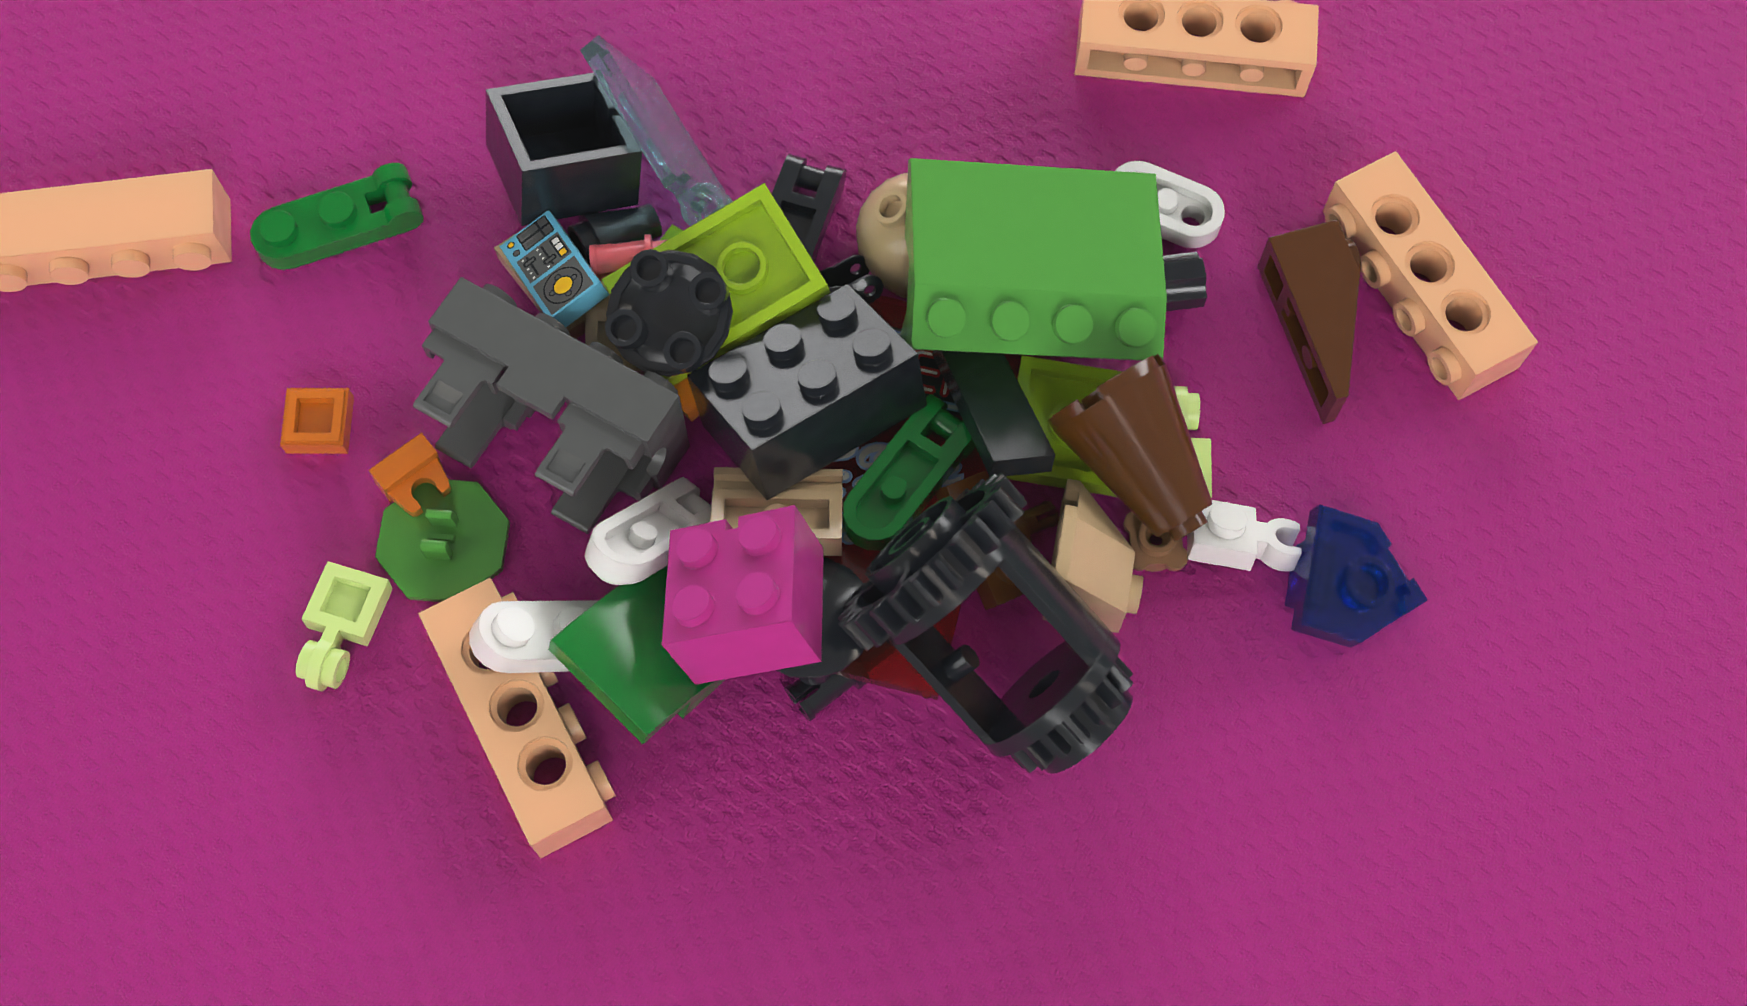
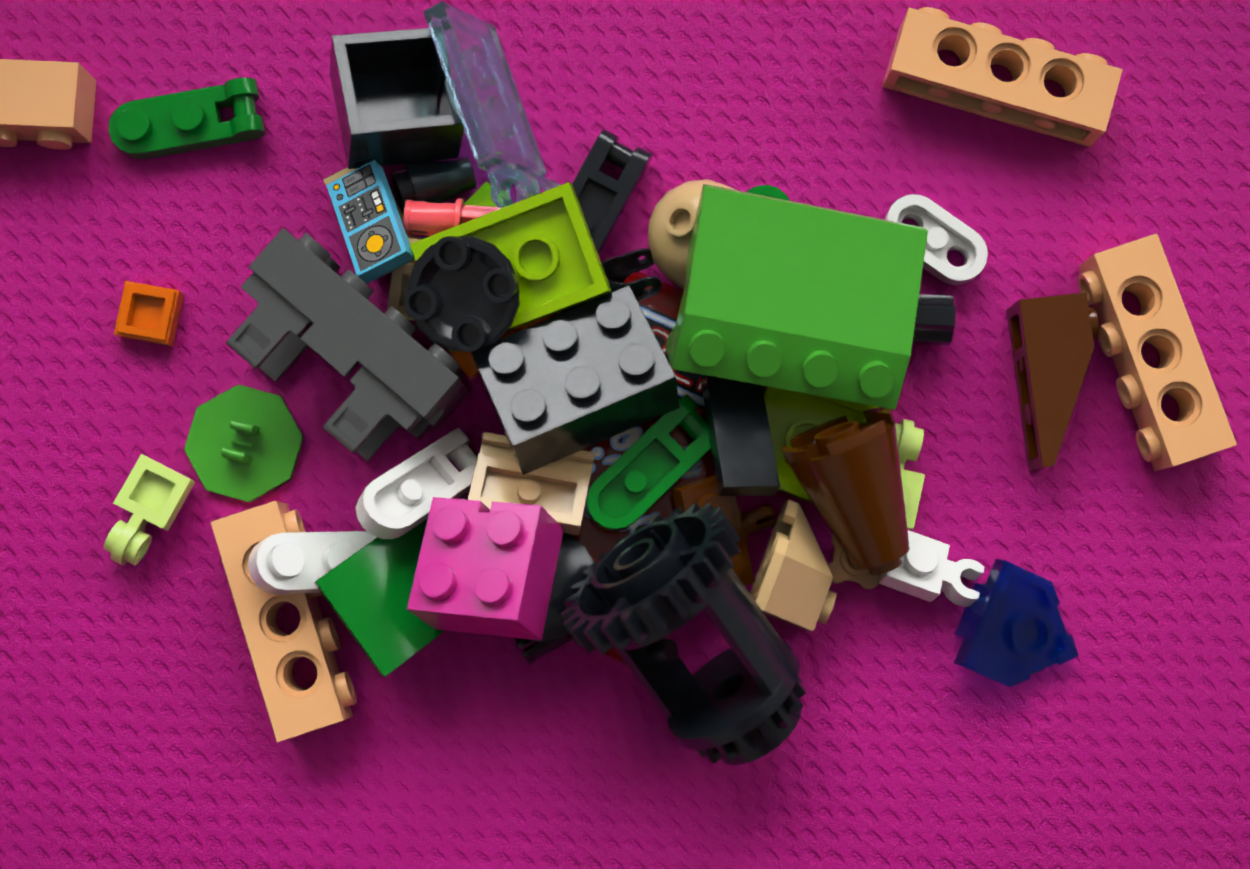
camera: 10 degrees right, 15 degrees up
(406, 469) = (216, 382): orange tile -> none

